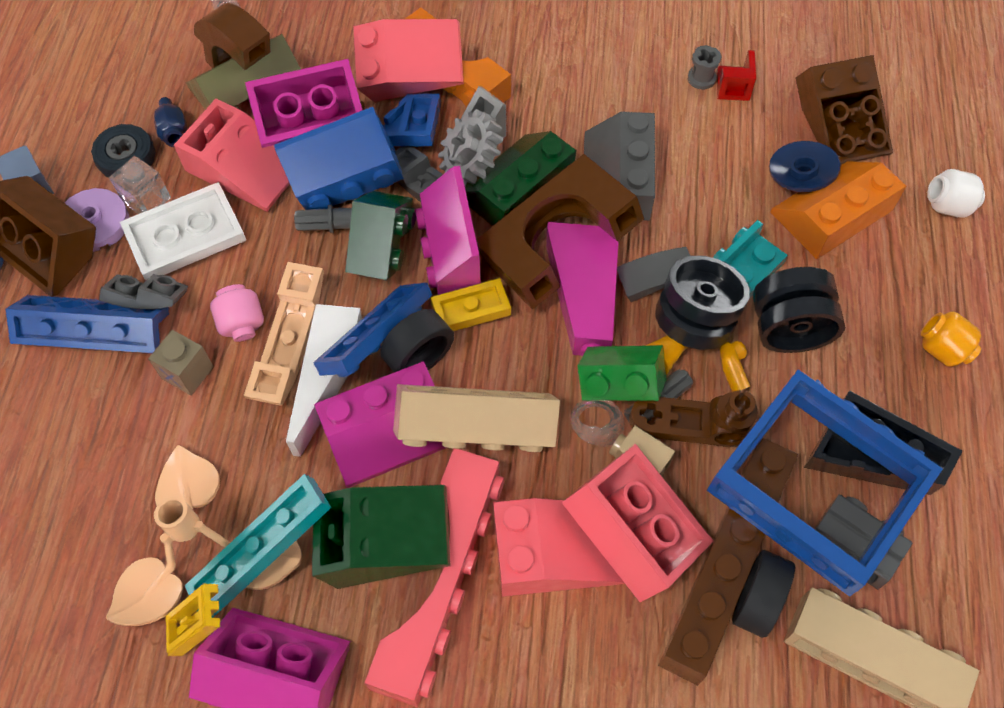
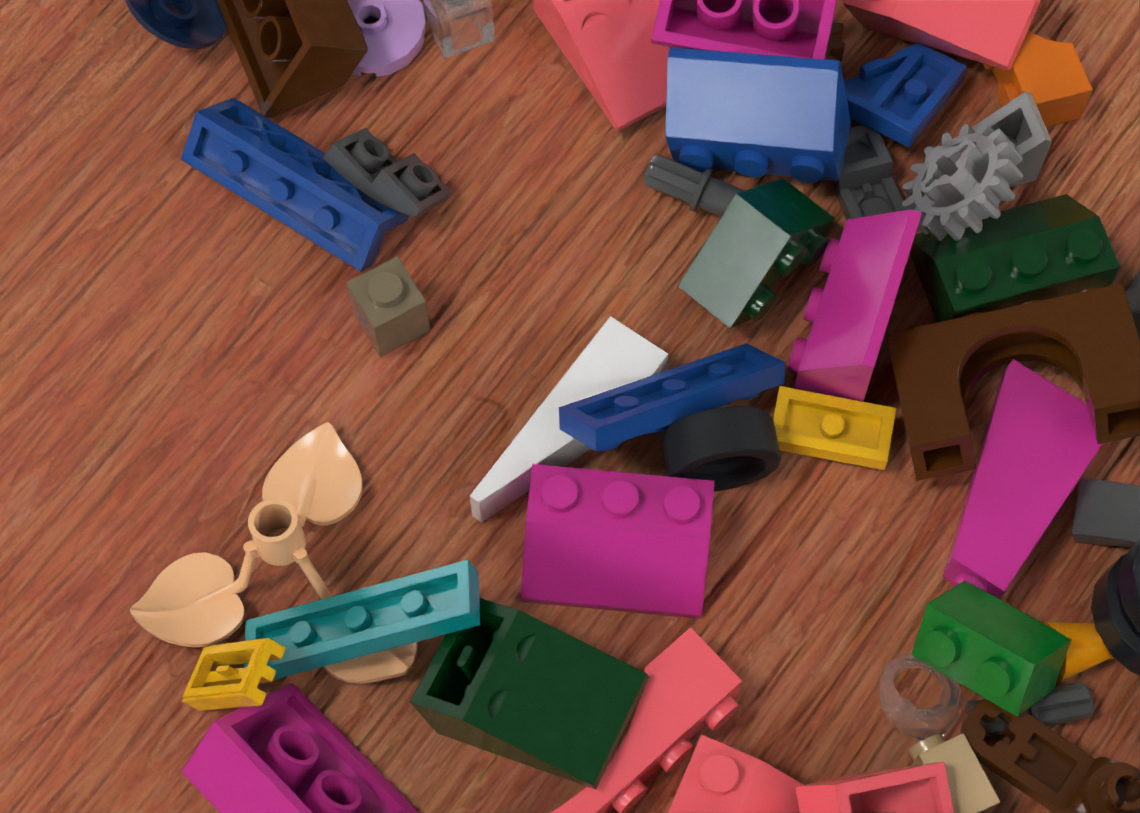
camera: 30 degrees right, 5 degrees up
(182, 231) = (485, 106): white plate -> none
(236, 312) = (498, 270): bright pink head -> none
(288, 337) = (552, 340): light nougat slope -> none
(475, 416) = (744, 601): tan brick -> none

